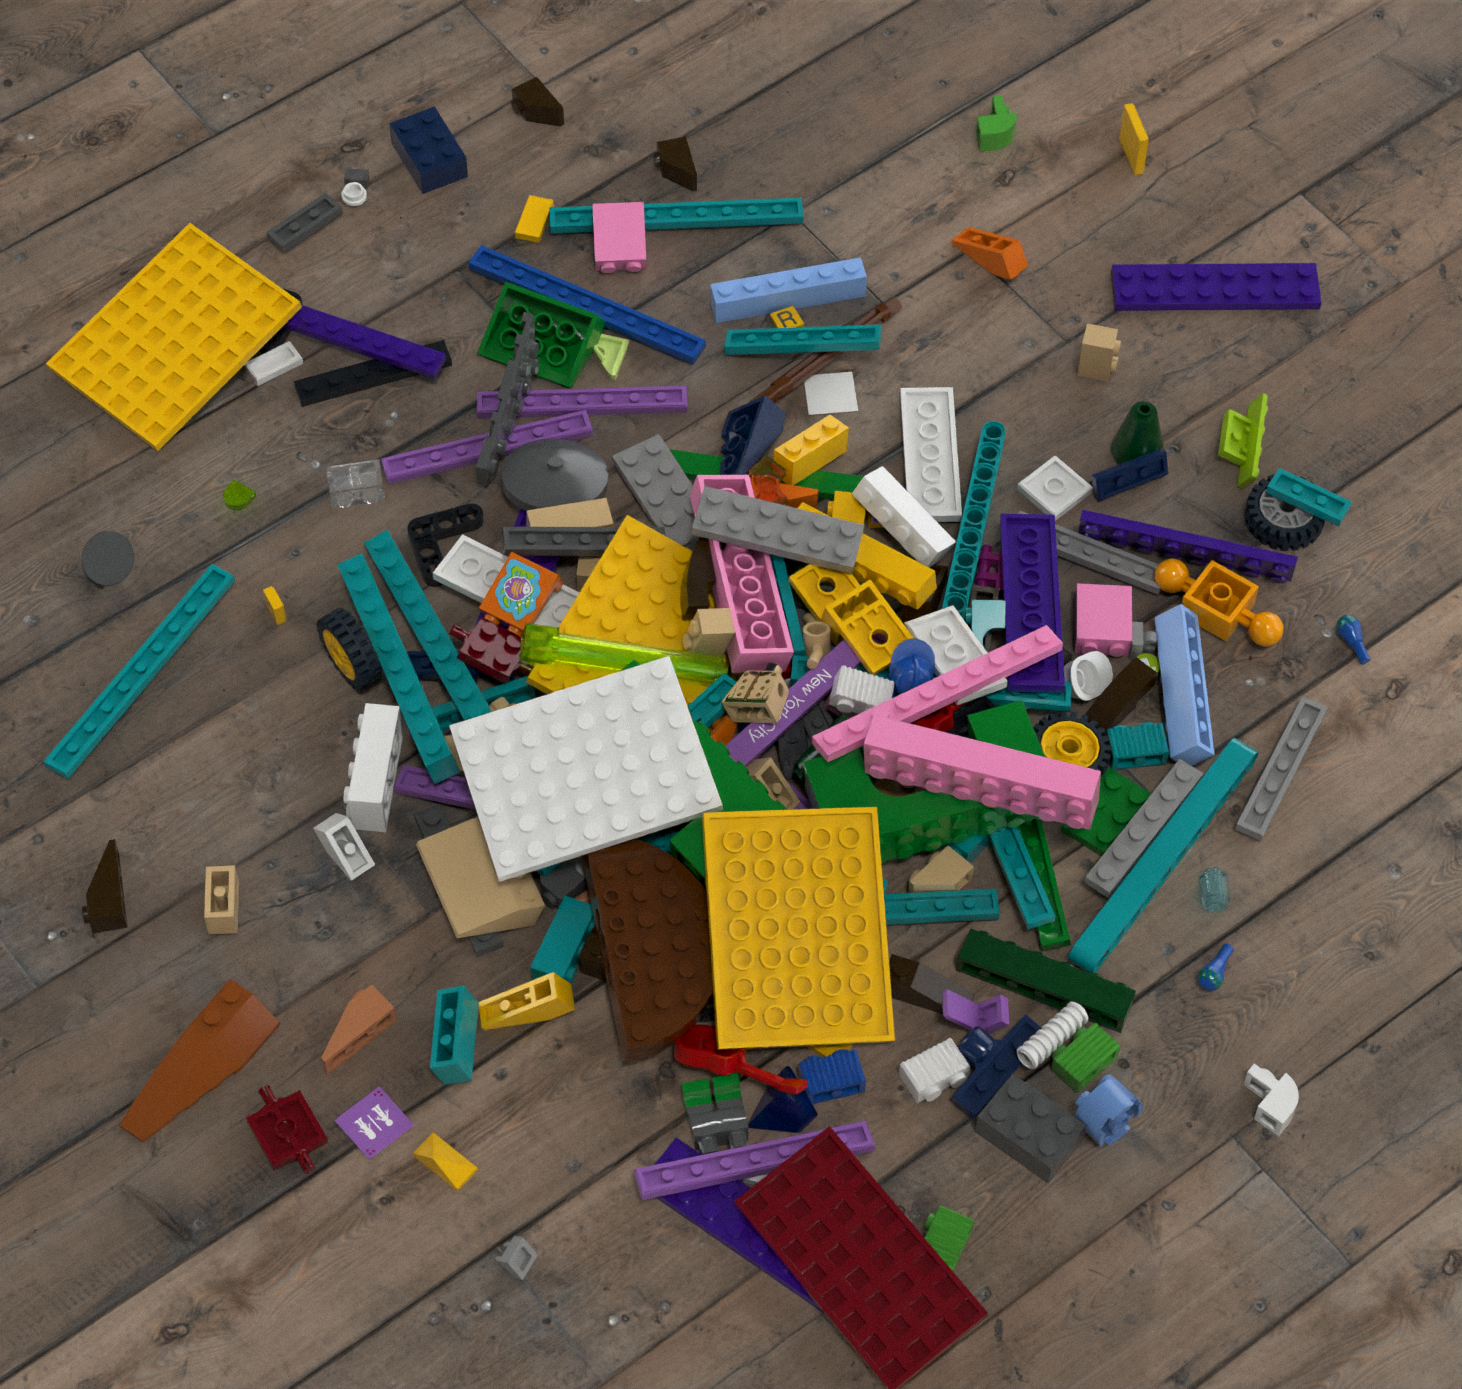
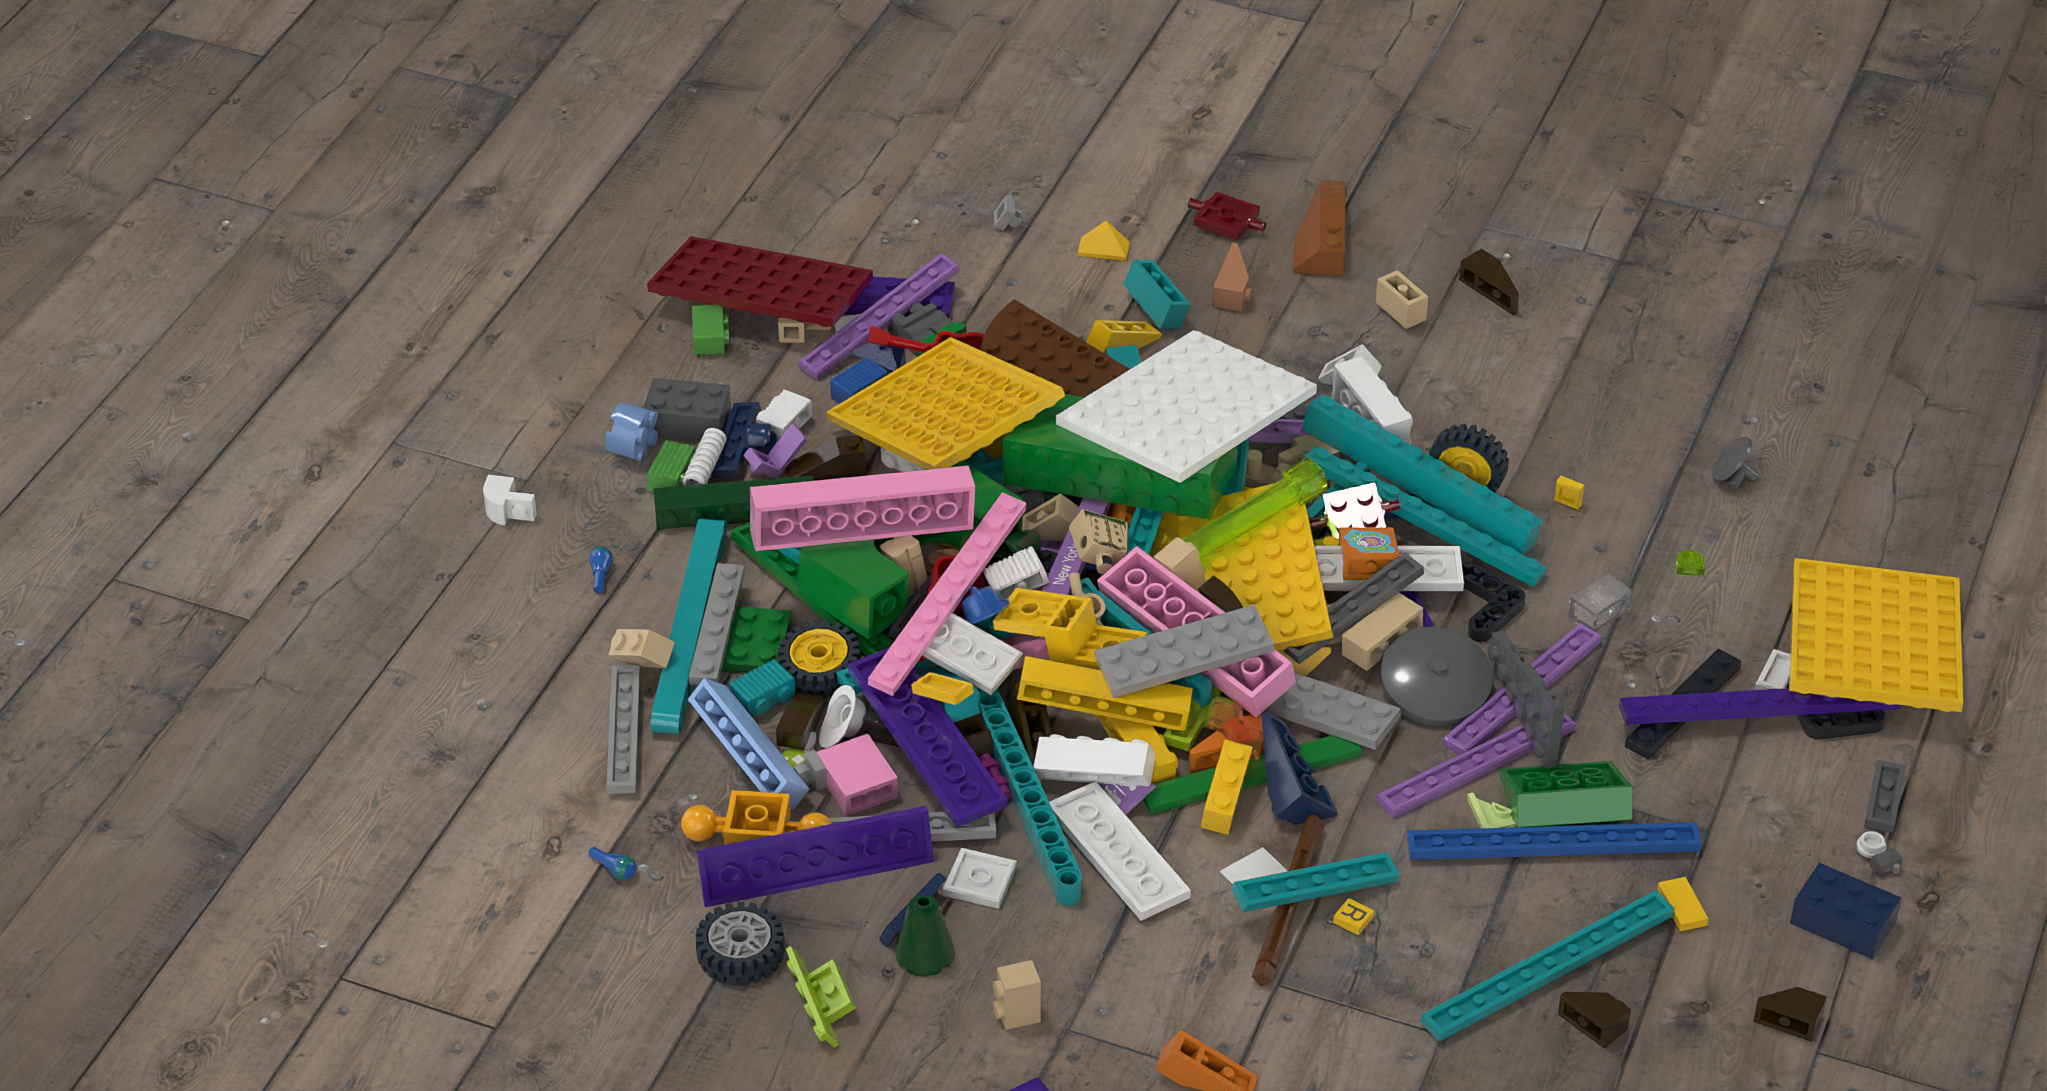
camera: 150 degrees right, 15 degrees down
(139, 672) = (1624, 416): teal plate -> none
(374, 1122) = (1173, 250): medium lavender sticker -> none
(619, 237) = (1578, 902): bright pink brick -> none
(783, 289) = (1372, 934): light blue brick -> none
(1002, 608) = (942, 688): none -> yellow tile
(1214, 890) = (631, 613): clear light blue brick -> none
(1233, 819) = (641, 648): none -> tan brick
(1309, 497) = (719, 935): teal plate -> none

